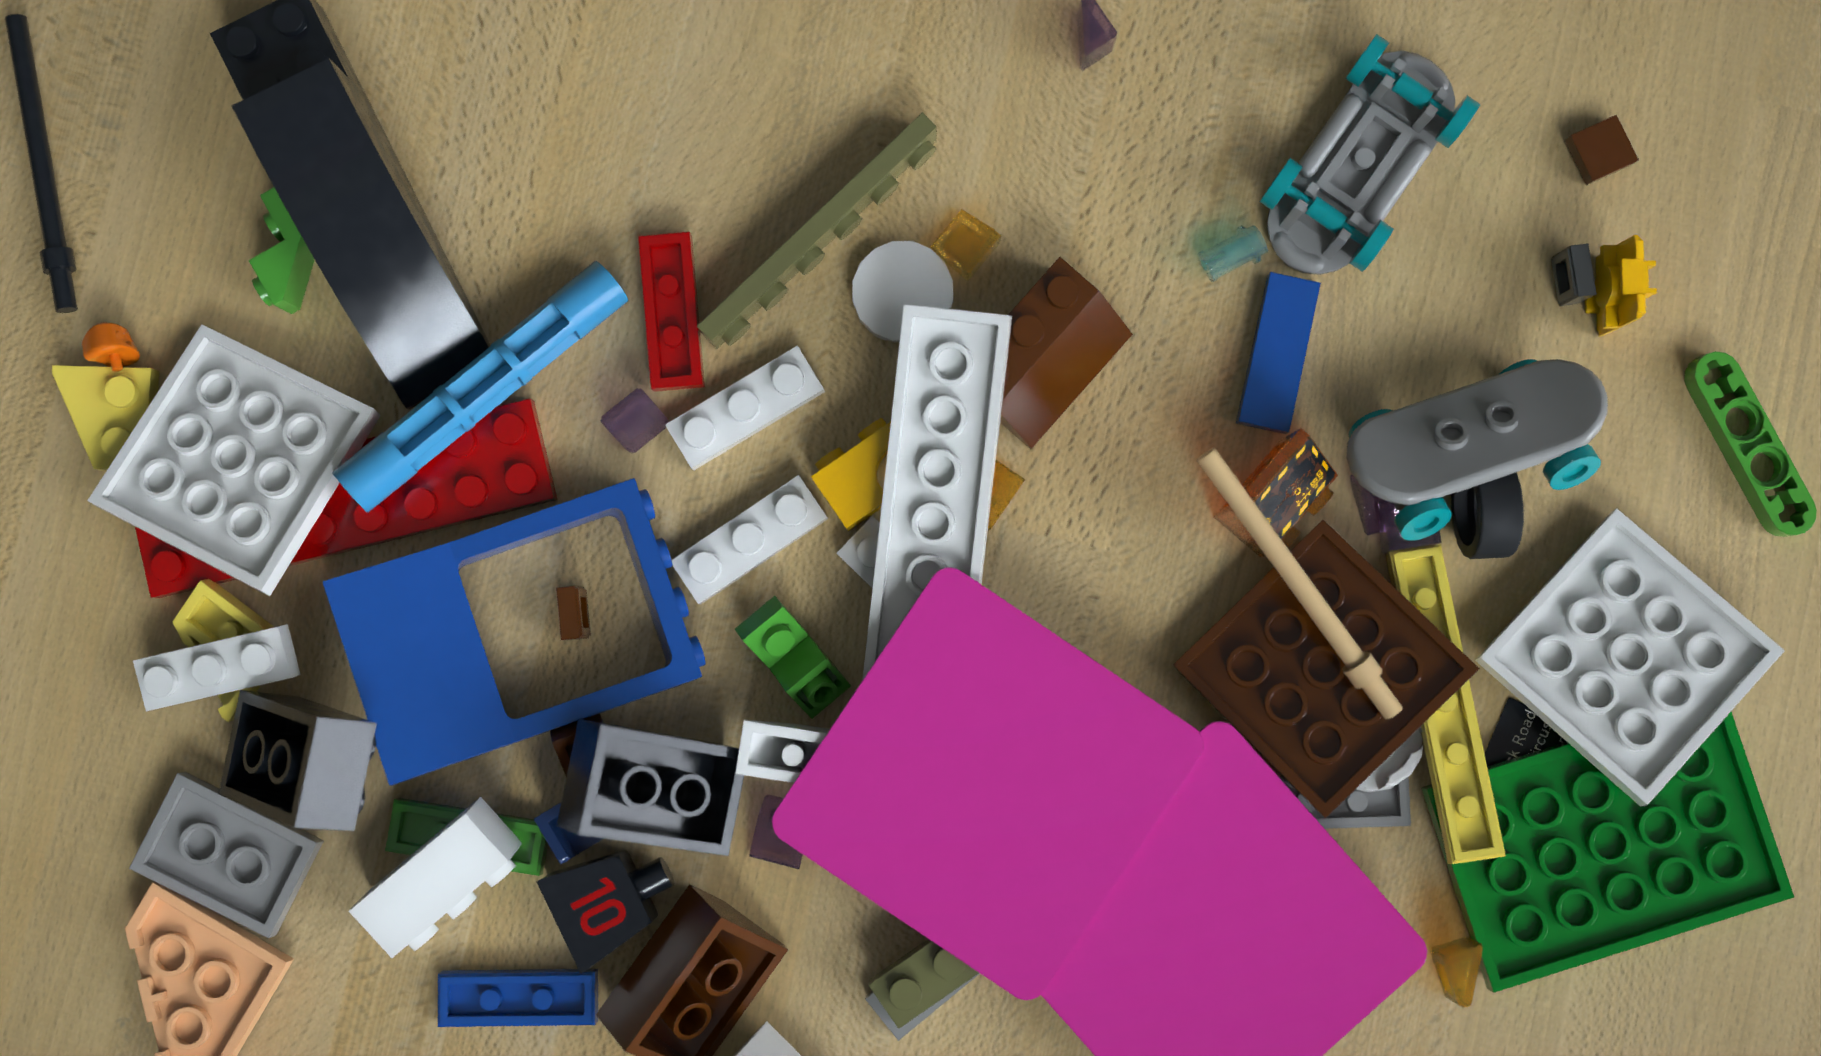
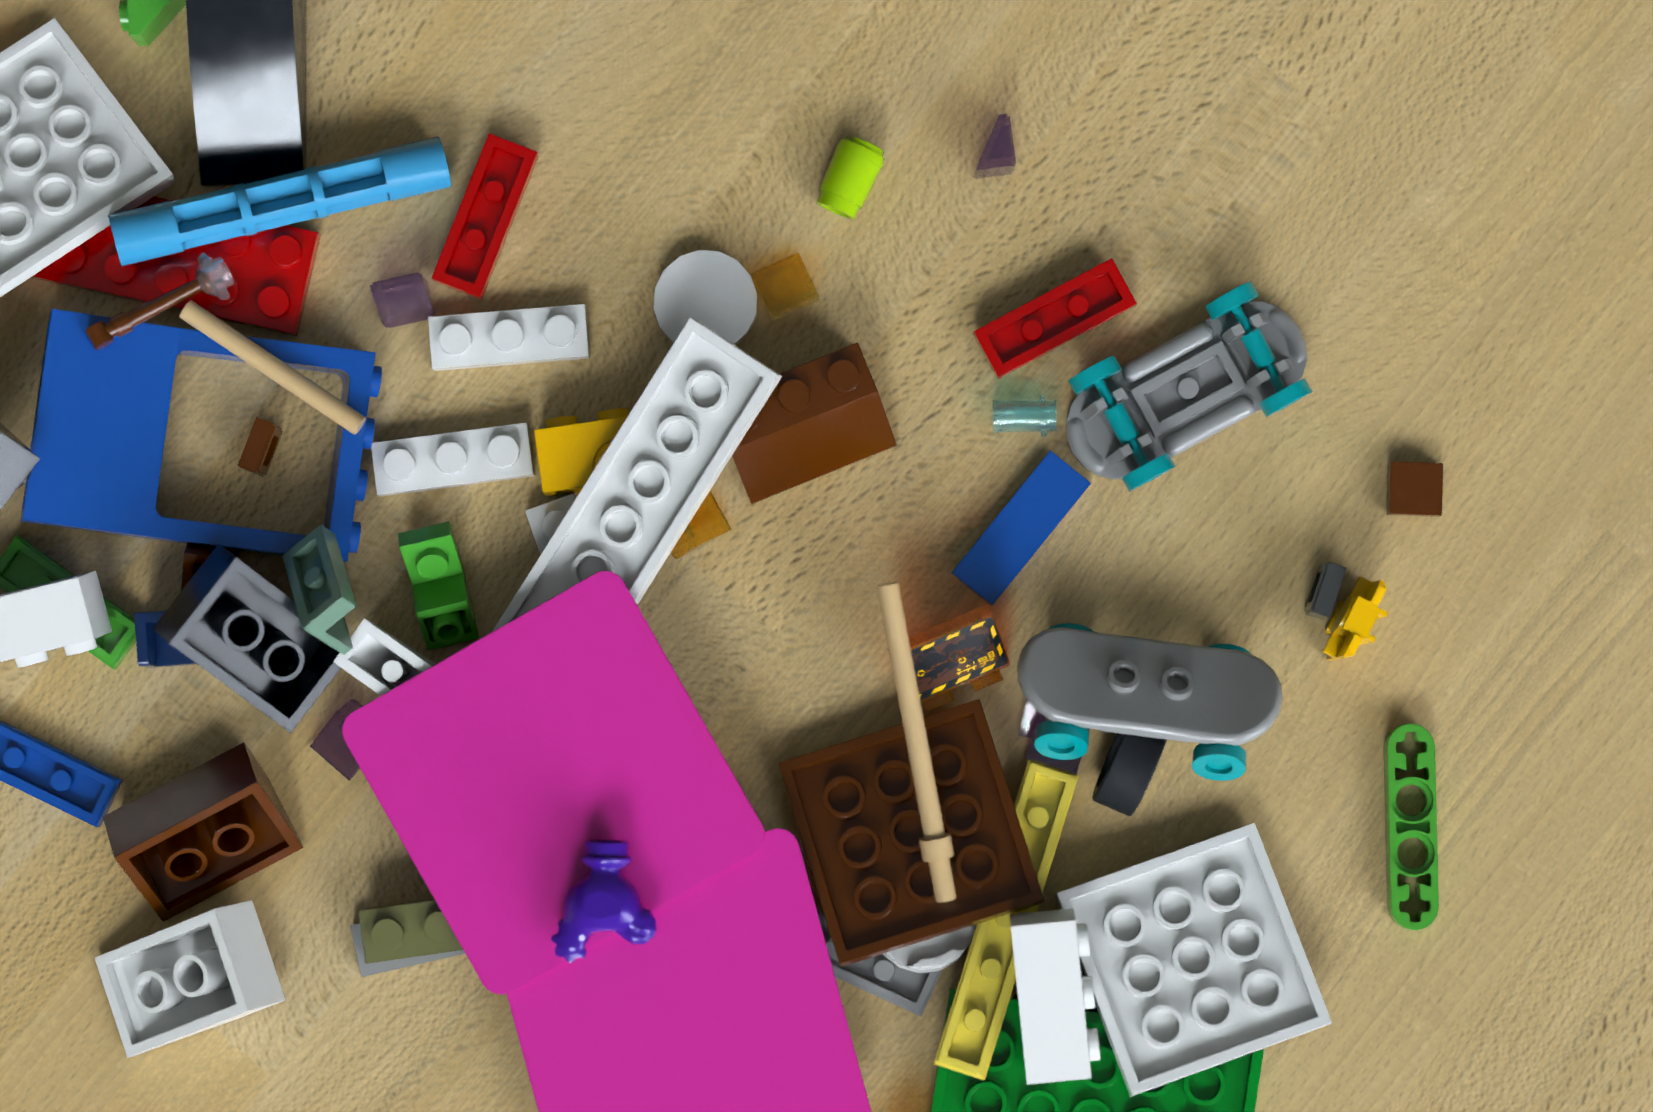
camera: 25 degrees right, 0 degrees up
(454, 483) = (211, 278): none -> reddish brown piece
(548, 536) = (272, 367): none -> tan bar
(603, 903) = (158, 721): black torso -> none
(692, 712) = (321, 587): none -> sand green panel
(836, 218) = (635, 218): olive plate -> none
(975, 119) = (850, 176): none -> lime piece
(1090, 871) = (602, 902): none -> dark purple animal
(1215, 155) = (1054, 318): none -> red plate
(1531, 751) = (1053, 995): none -> white brick

